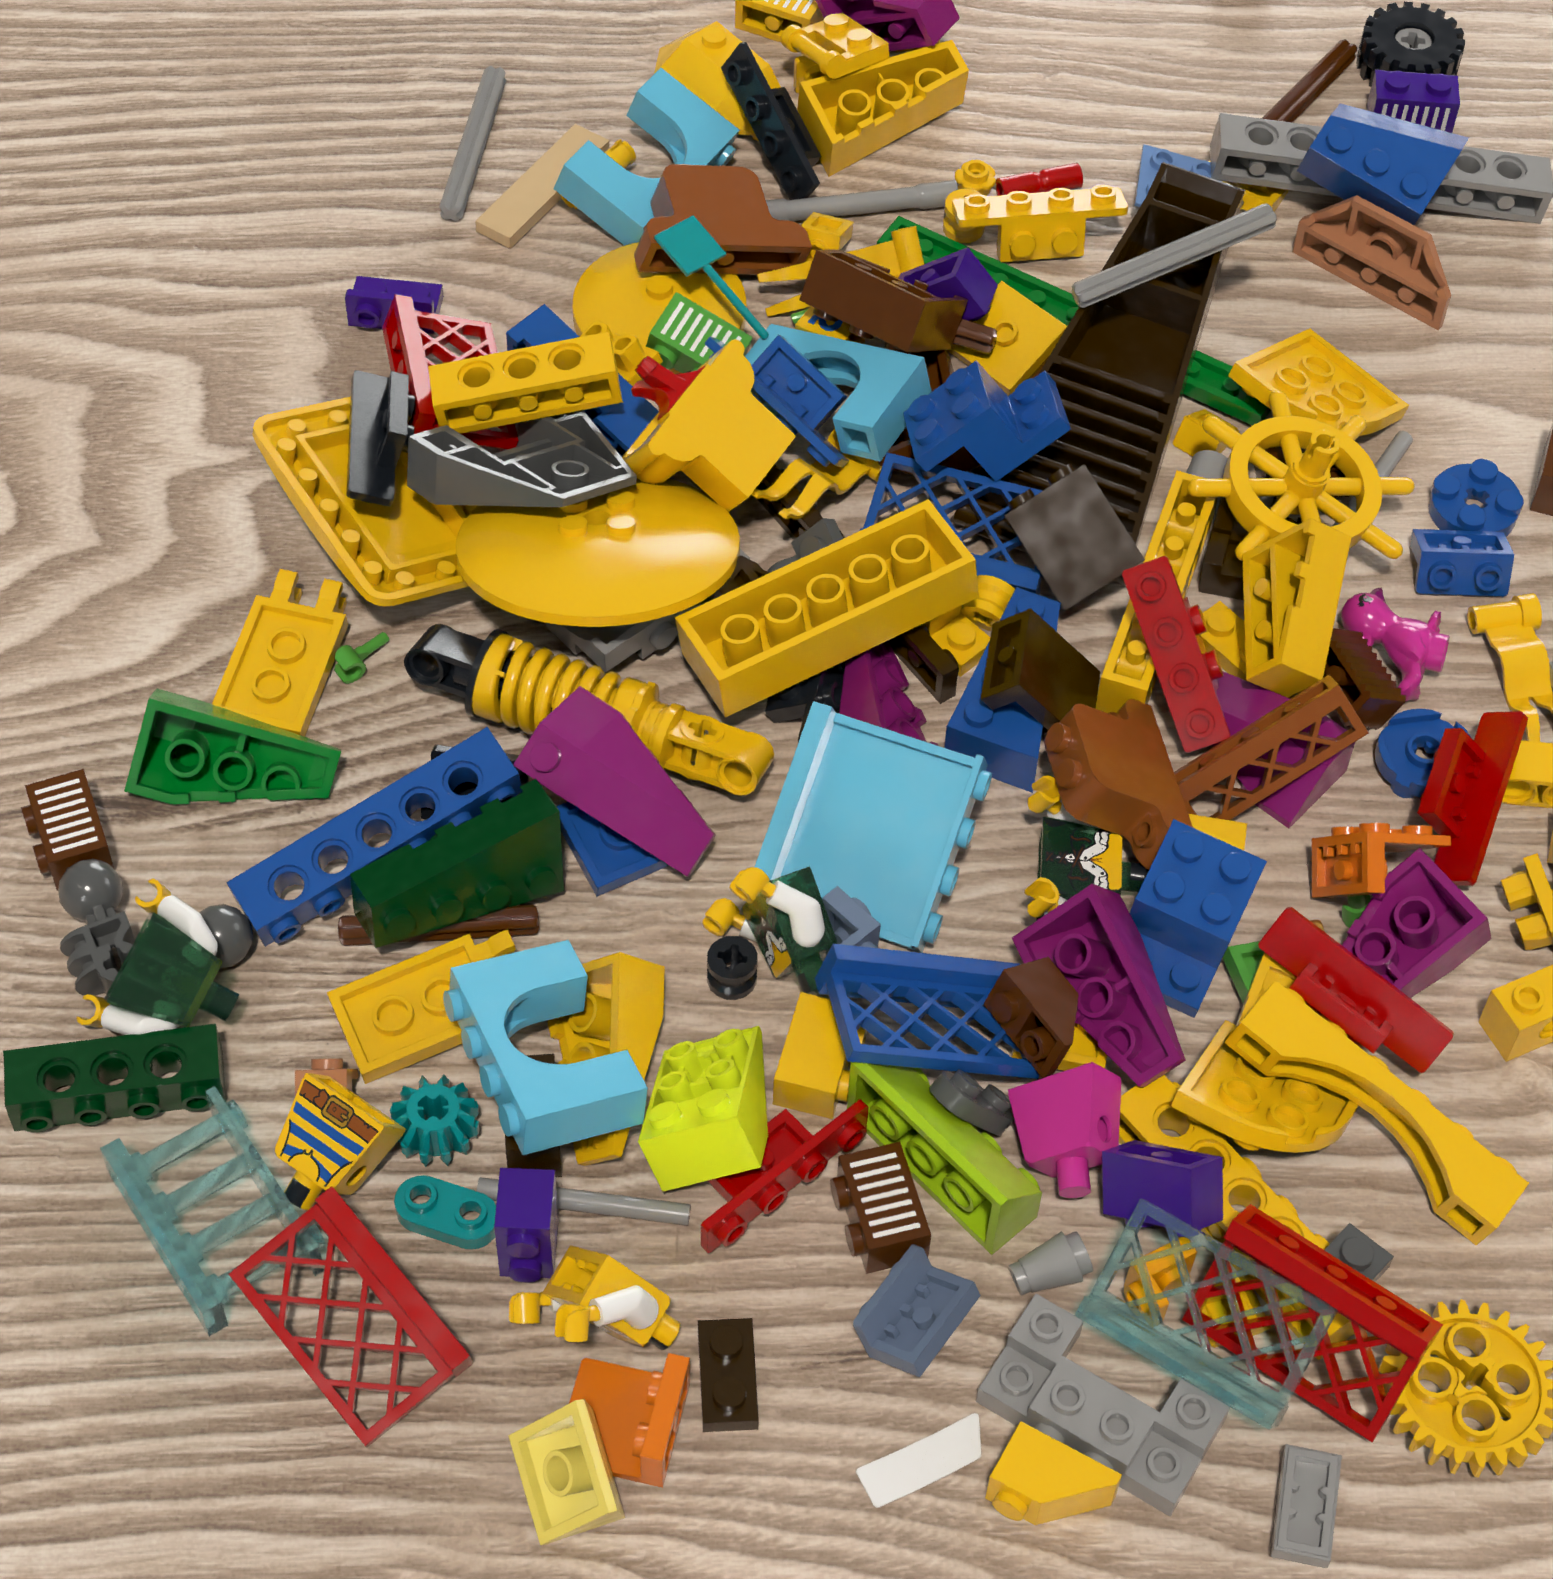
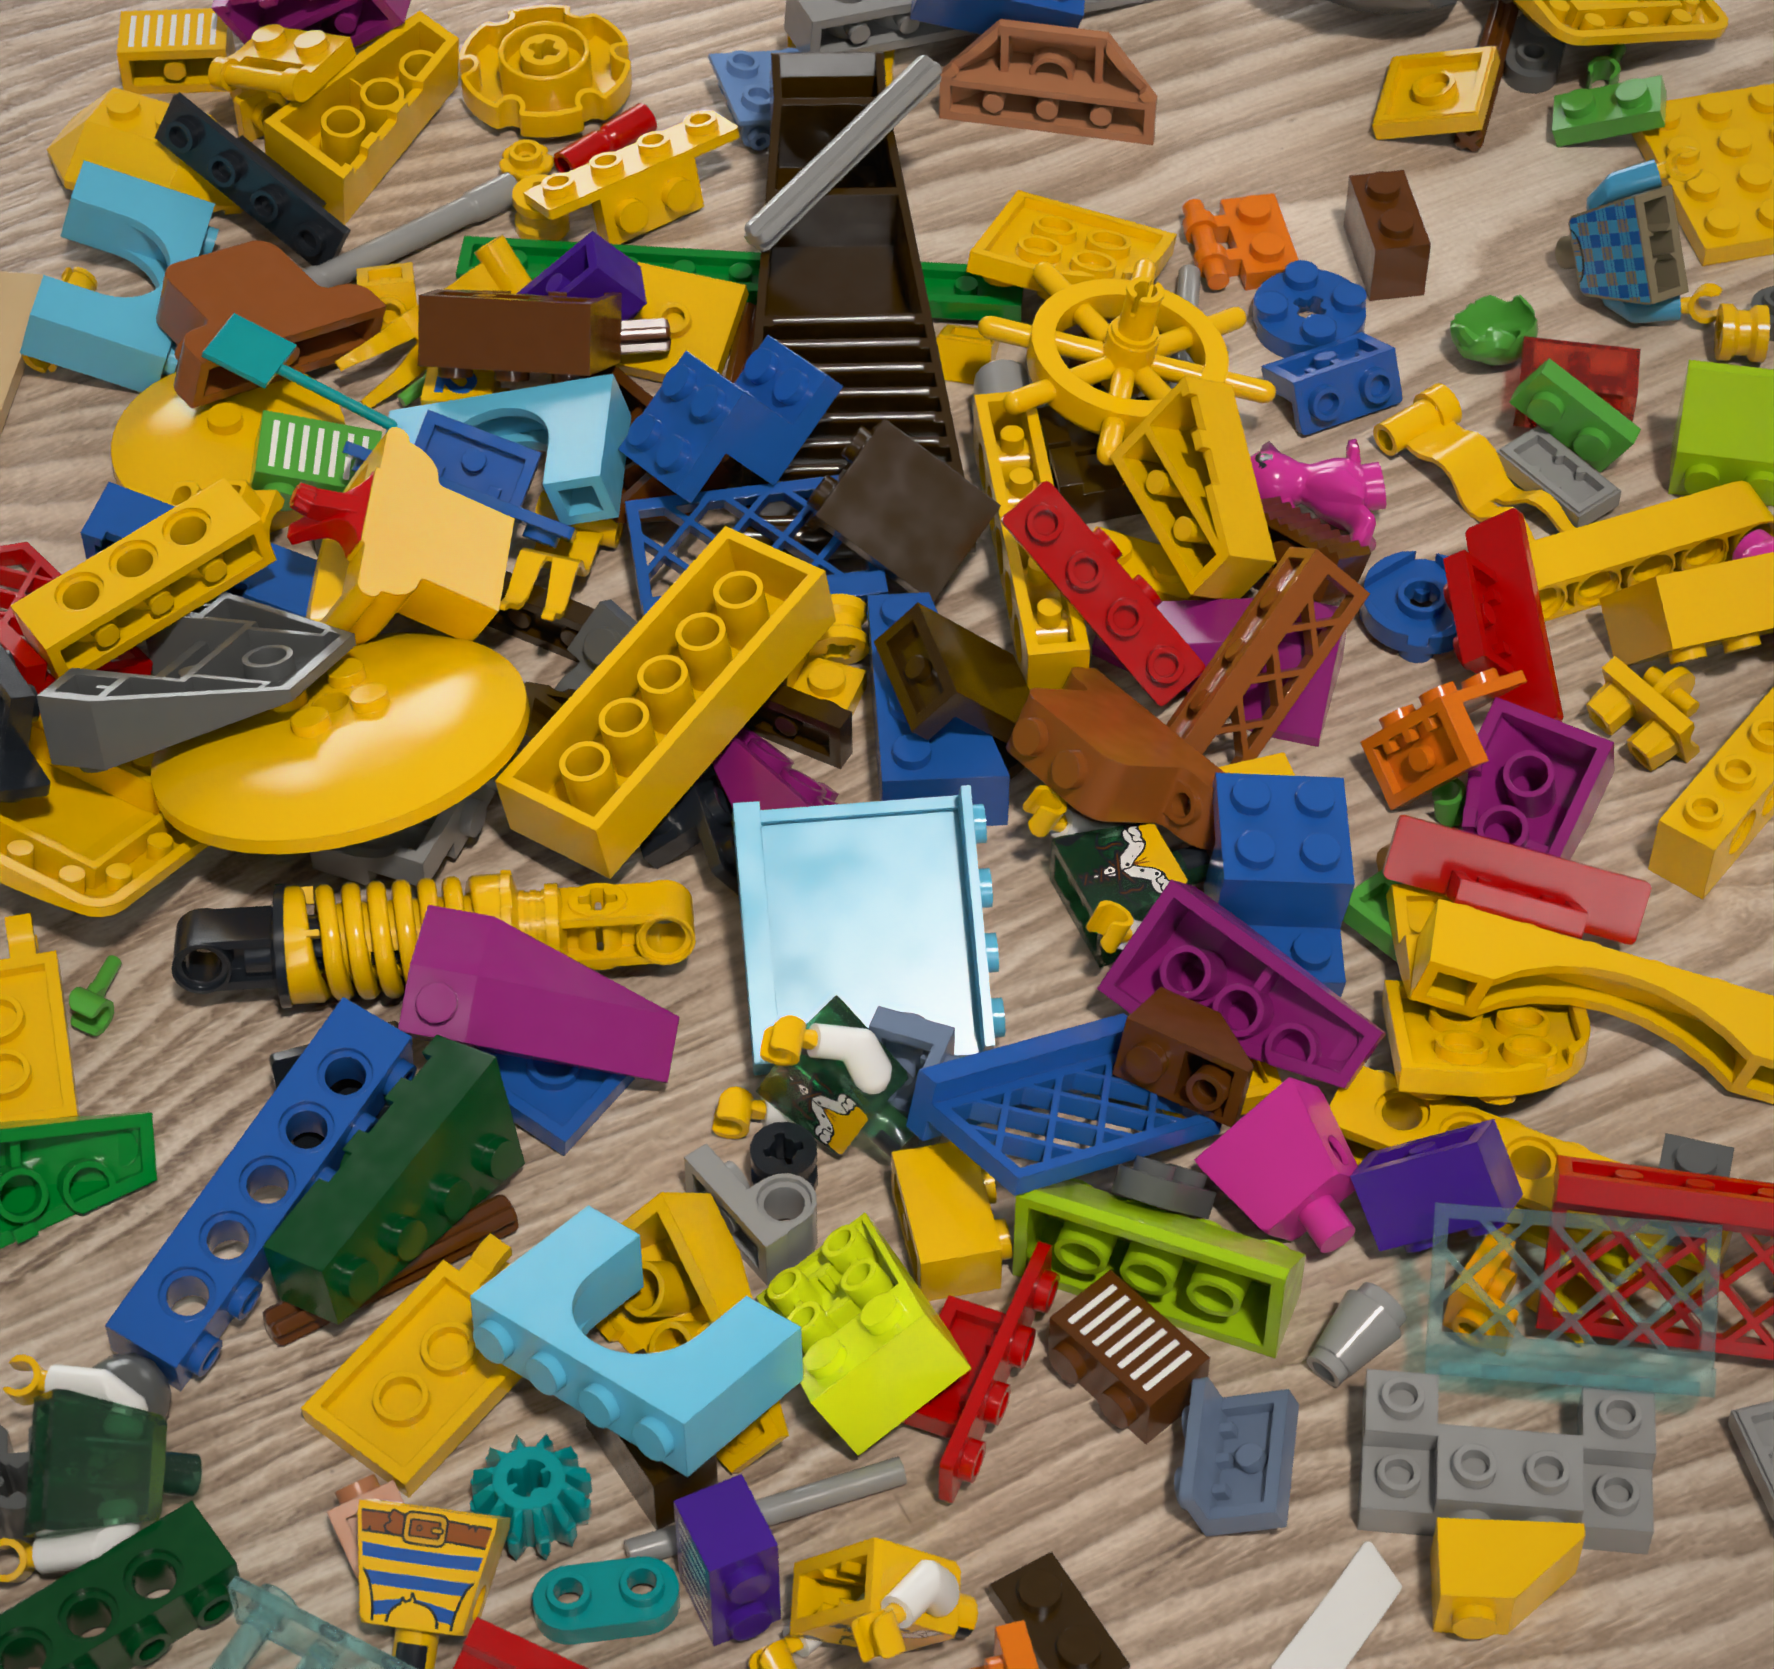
camera: 25 degrees left, 5 degrees down
(690, 990) = (755, 1211): none -> light grey plate
(1026, 115) = (545, 71): none -> yellow piece
(1471, 428) = (1255, 236): none -> orange plate

